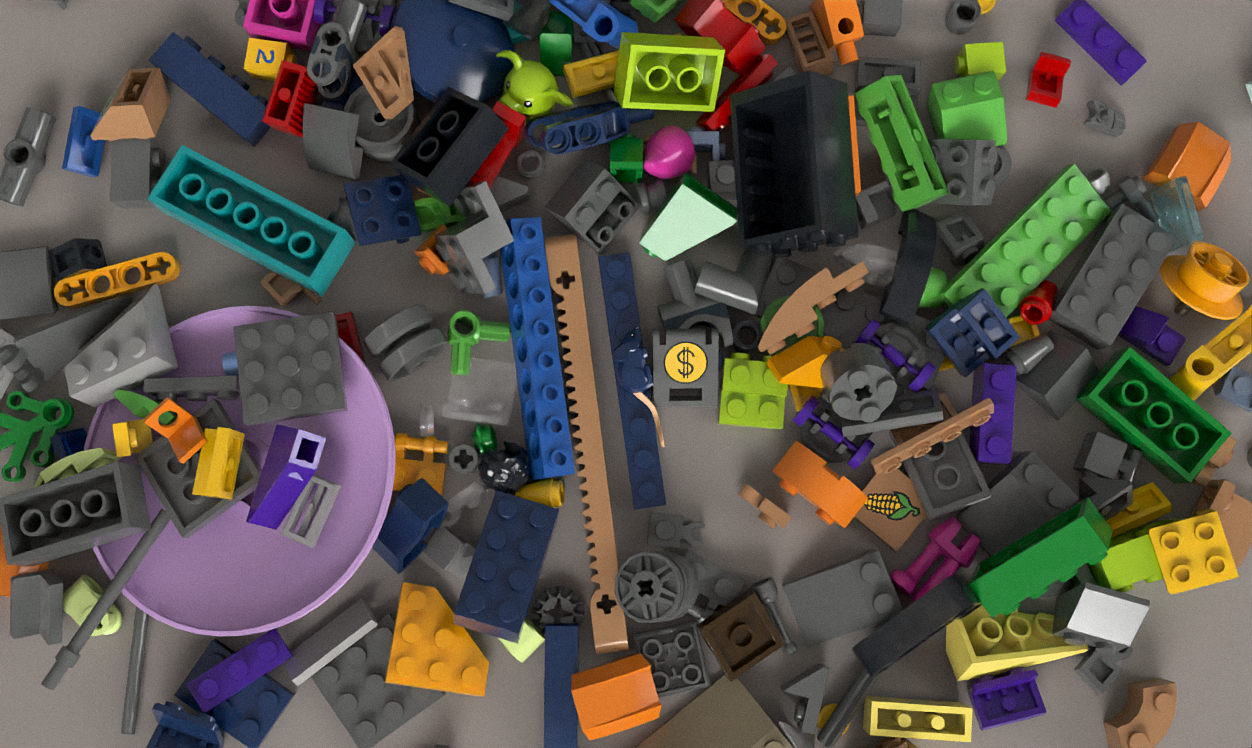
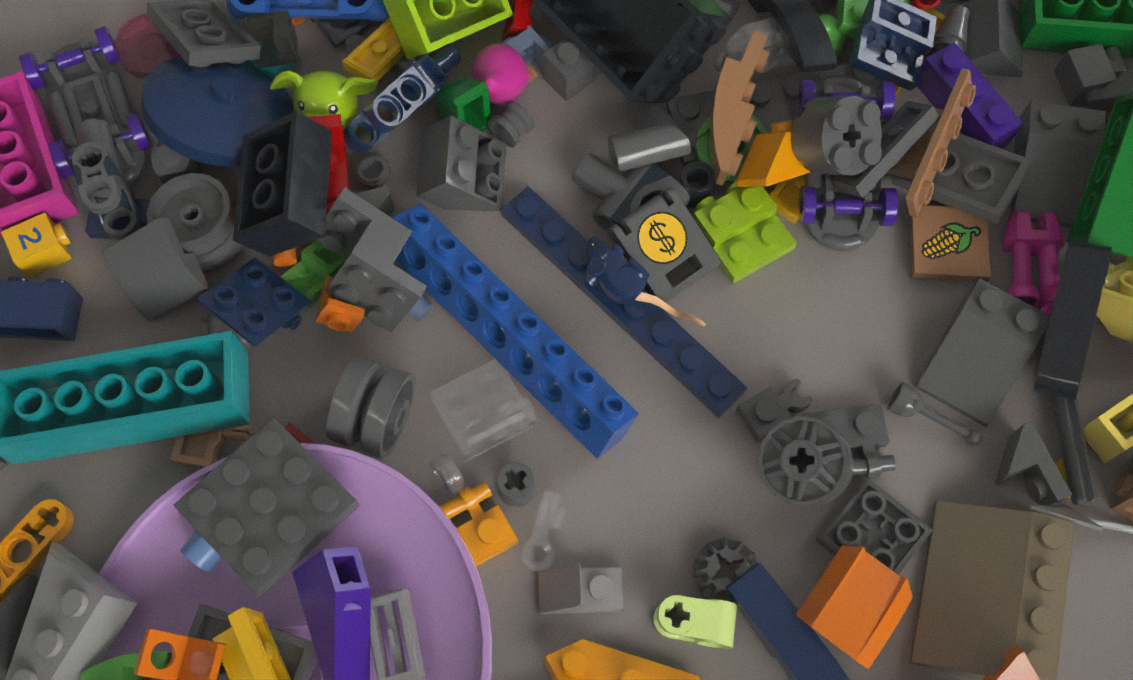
camera: 35 degrees left, 15 degrees down
(193, 388) = (175, 605): dark grey plate -> none
(287, 99) = (81, 261): red brick -> none
(387, 73) = (172, 161): medium nougat wing -> none
(409, 523) = (507, 571): dark blue brick -> none
(462, 344) = (433, 352): bright green axle -> none
(484, 438) = (520, 450): green plate -> none
(505, 469) = (564, 461): black piece -> none
(506, 567) = (645, 555): dark blue brick -> none
(544, 492) = (618, 465): yellow cone -> none
(557, 43) = (319, 51): green slope -> none
(563, 260) = (785, 543): medium nougat gear -> none
(686, 219) = (560, 116): slope -> none
(740, 635) = (920, 455): dark brown plate -> none
(769, 512) = (848, 322): medium nougat plate -> none
(807, 475) = (858, 264): orange brick -> none

